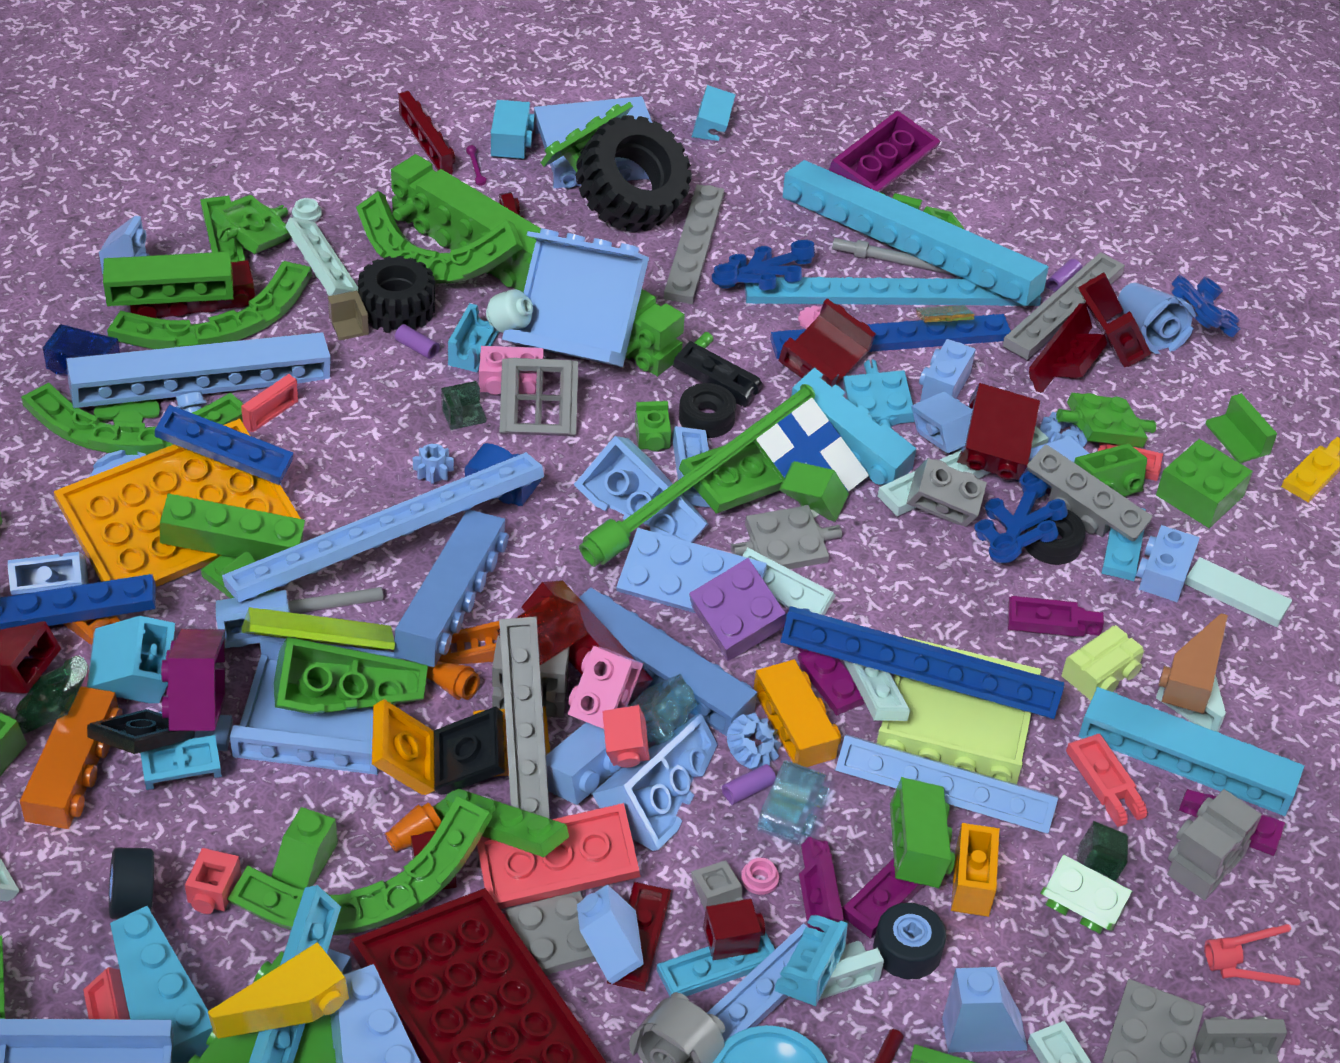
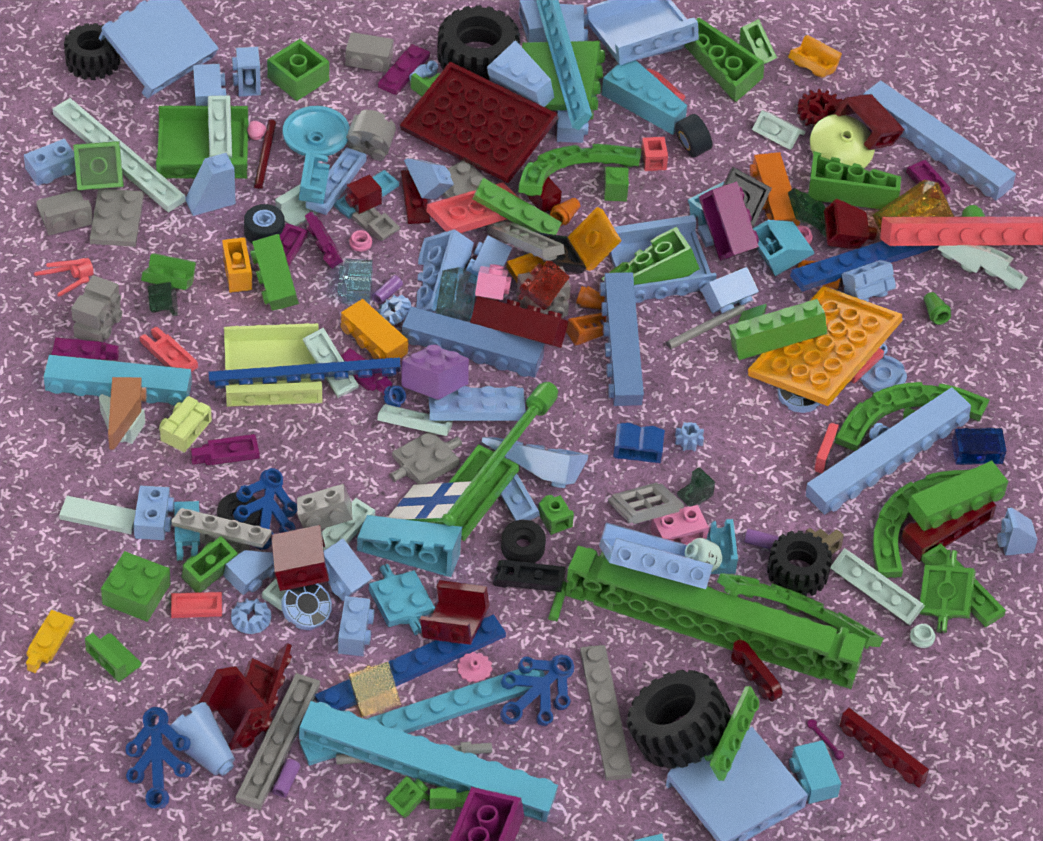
camera: 160 degrees right, 5 degrees up
(224, 444) = (821, 371): blue plate -> none
(285, 997) = (565, 53): yellow slope -> none
(318, 629) = (680, 274): lime slope -> none
(381, 527) = (681, 356): light blue plate -> none
(626, 736) = (465, 252): coral brick -> none
(815, 487) = (418, 482): bright green slope -> none
(961, 786) = (210, 319): light blue plate -> none
(1106, 419) = (220, 621): bright green plate -> none

